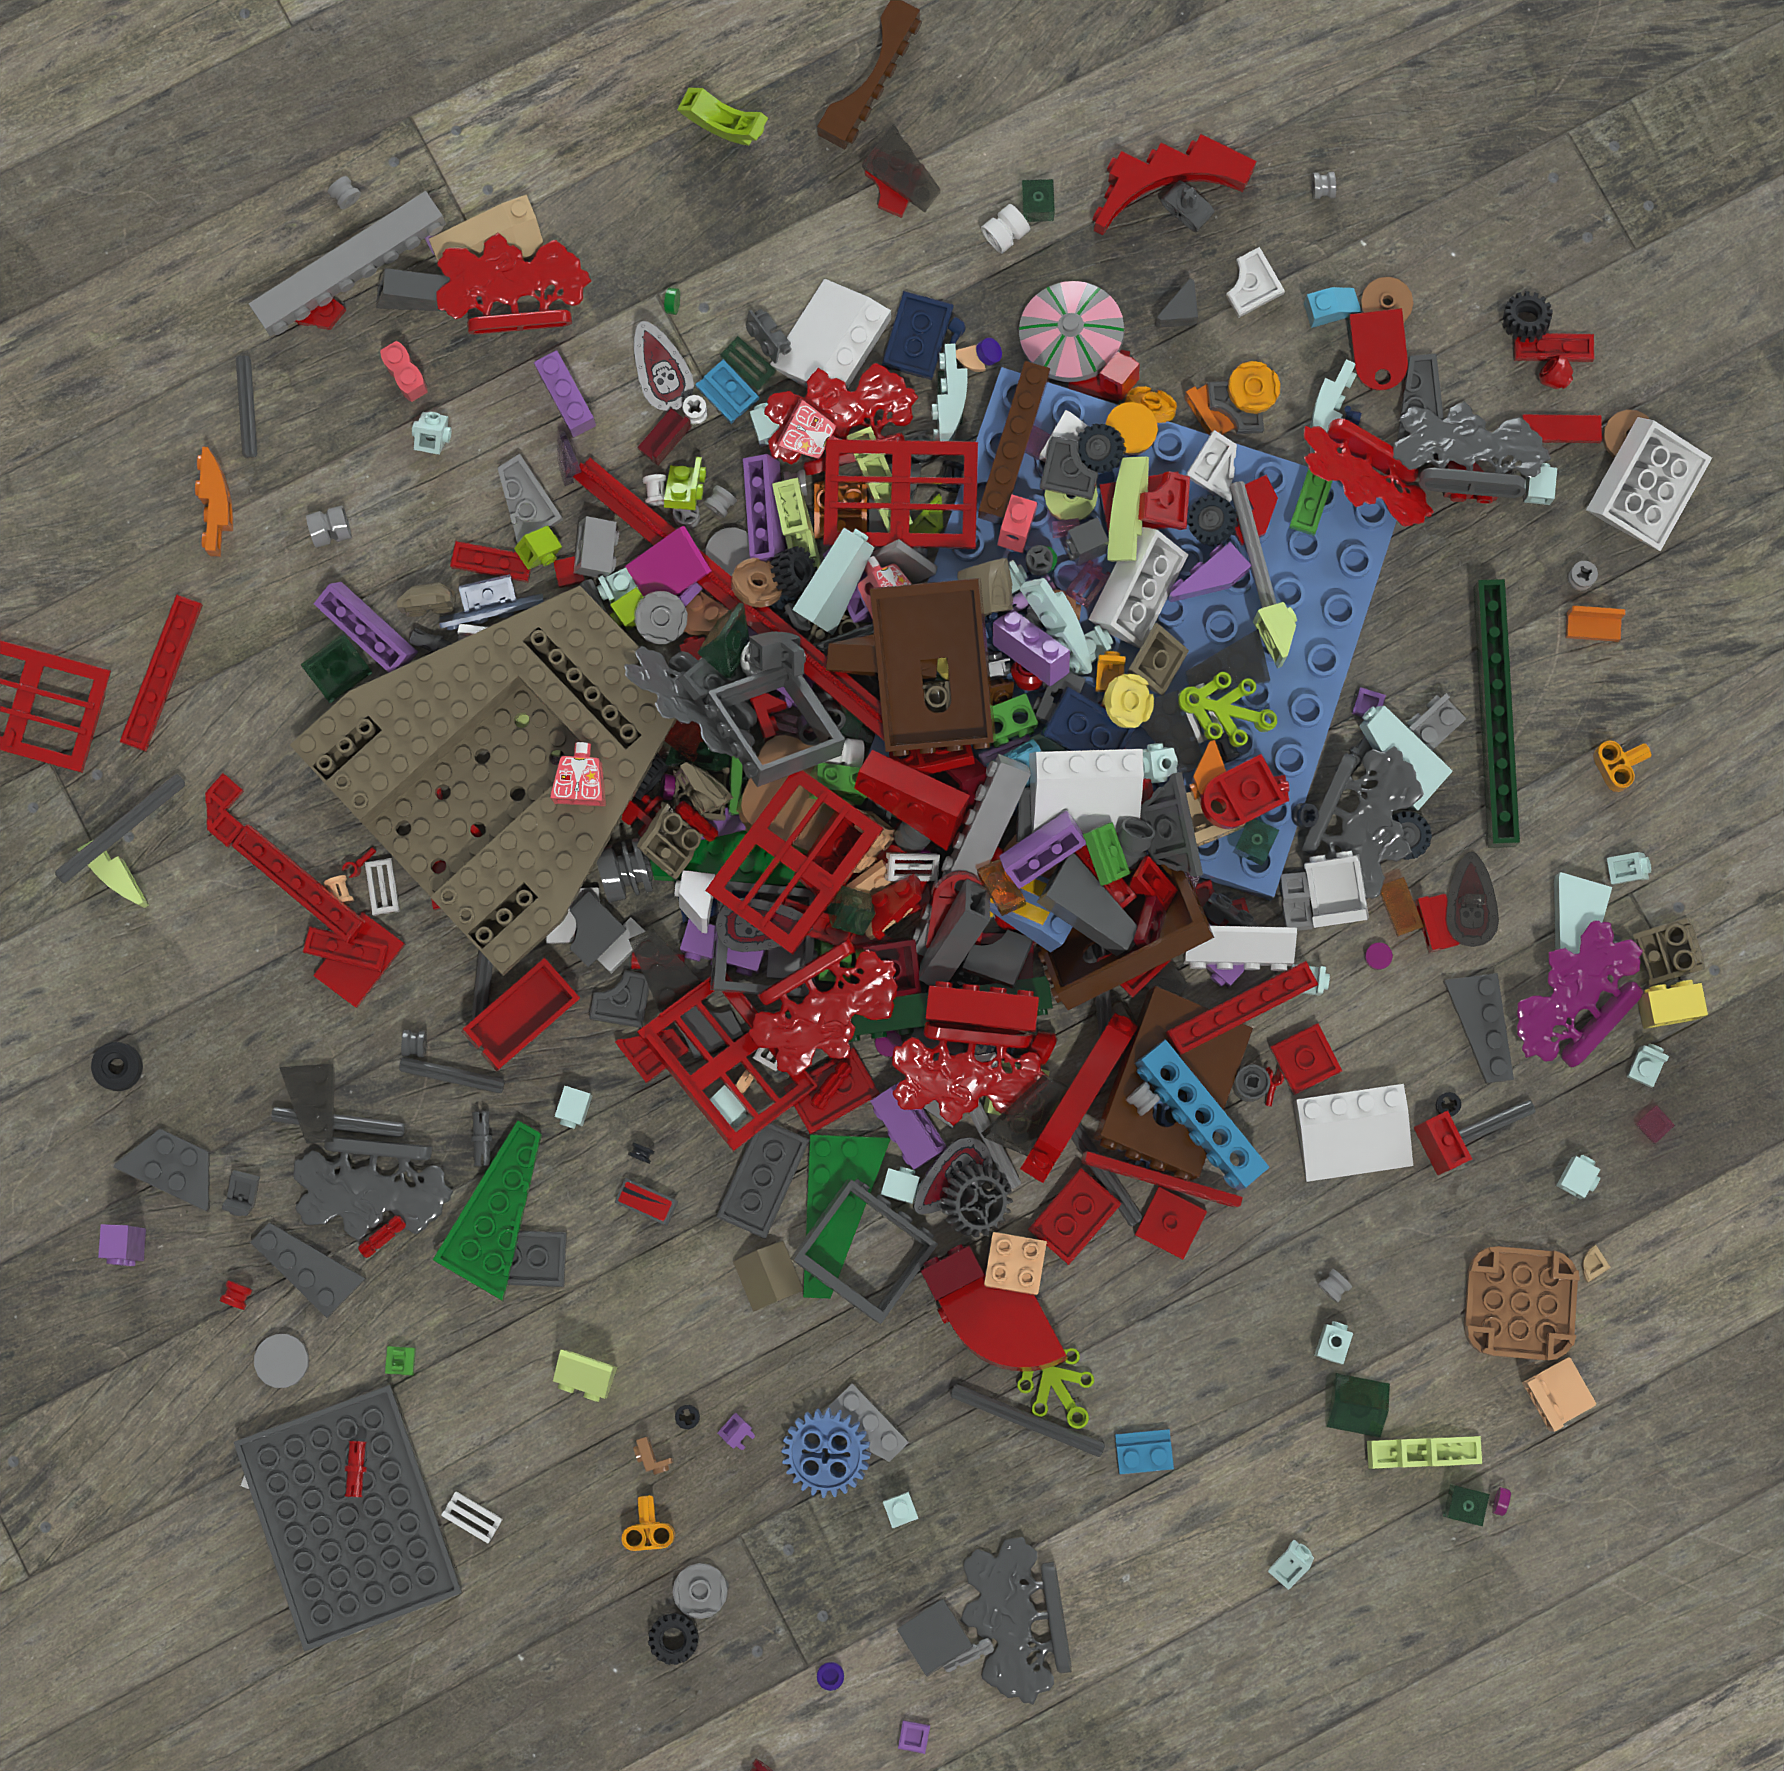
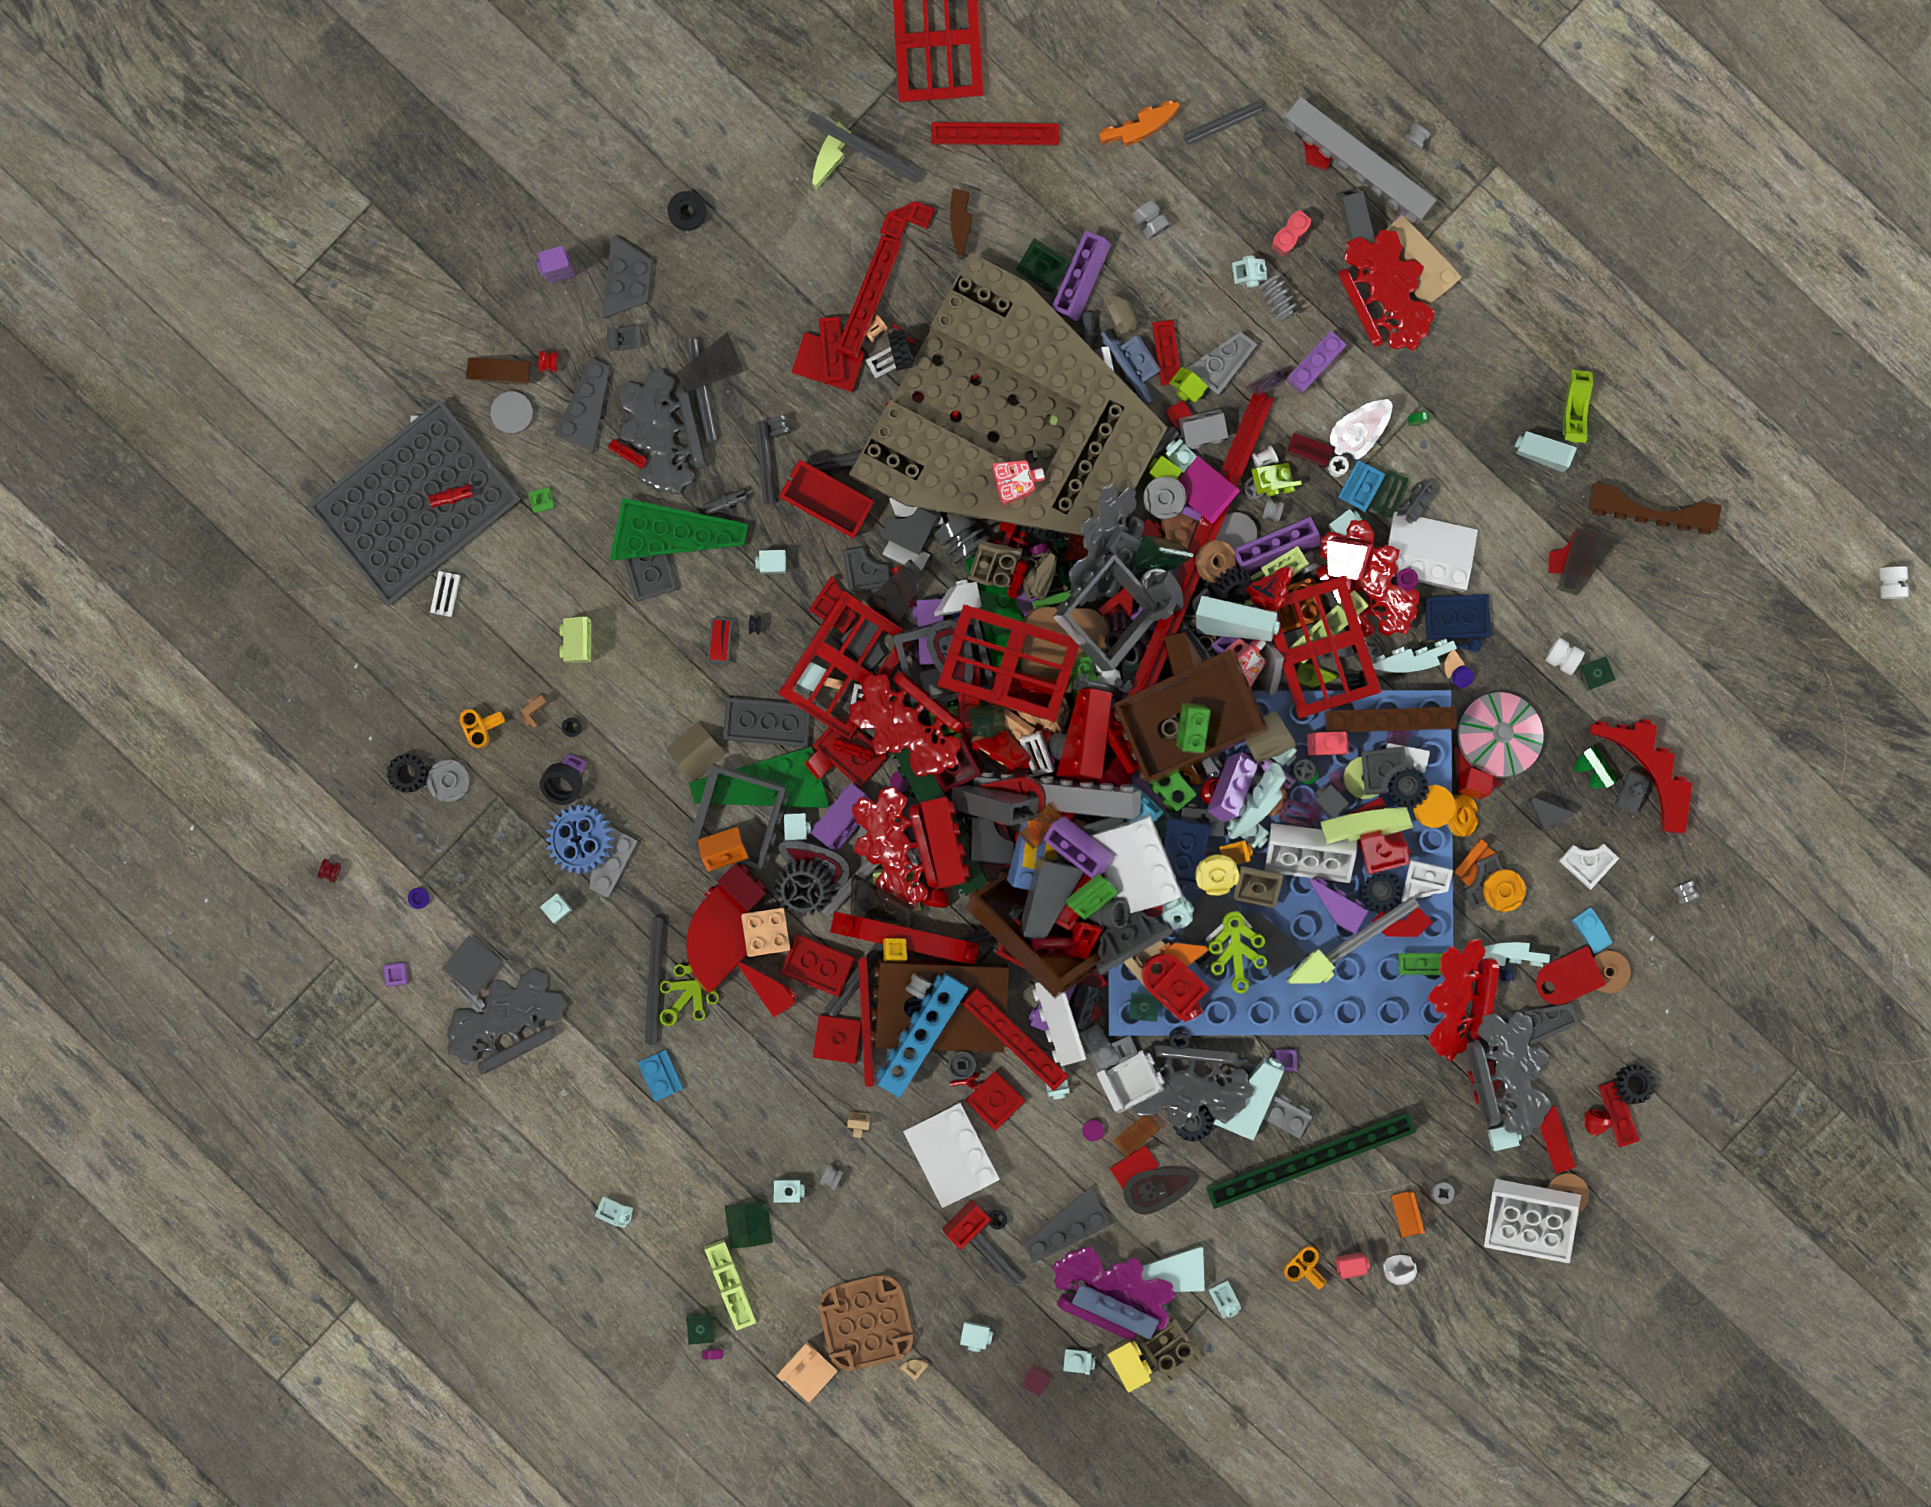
camera: 75 degrees right, 5 degrees up
(225, 1359) = (498, 371): none -> reddish brown slope
(248, 747) = (960, 220): none -> reddish brown slope
(375, 867) = (900, 350): none -> black tyre
(475, 411) = (1278, 299): none -> light grey piece
(740, 1440) = (556, 795): none -> black tyre
(761, 169) = (1545, 451): none -> light aqua slope
(813, 528) = (1271, 589): none -> red rock
(834, 1132) = (818, 763): none -> red tile
(855, 371) = (1407, 579): none -> magenta tile
(869, 743) = (1117, 690): none -> dark grey bar
(898, 1281) = (722, 849): none -> orange panel
(947, 664) = (1193, 727): none -> bright green brick
(1089, 1113) = (894, 950): none -> yellow tile
(1091, 1279) = (771, 992): none -> red slope
(1136, 239) = (1591, 760): none -> green tile
(1279, 1230) = (859, 1122): none -> tan tile
(1285, 913) = (1098, 1047): none -> light grey plate
(1604, 999) = (1115, 1311): none -> sand blue bracket
(1636, 706) = (1352, 1265): none -> coral brick
(1657, 653) = (1400, 1269): none -> white hair

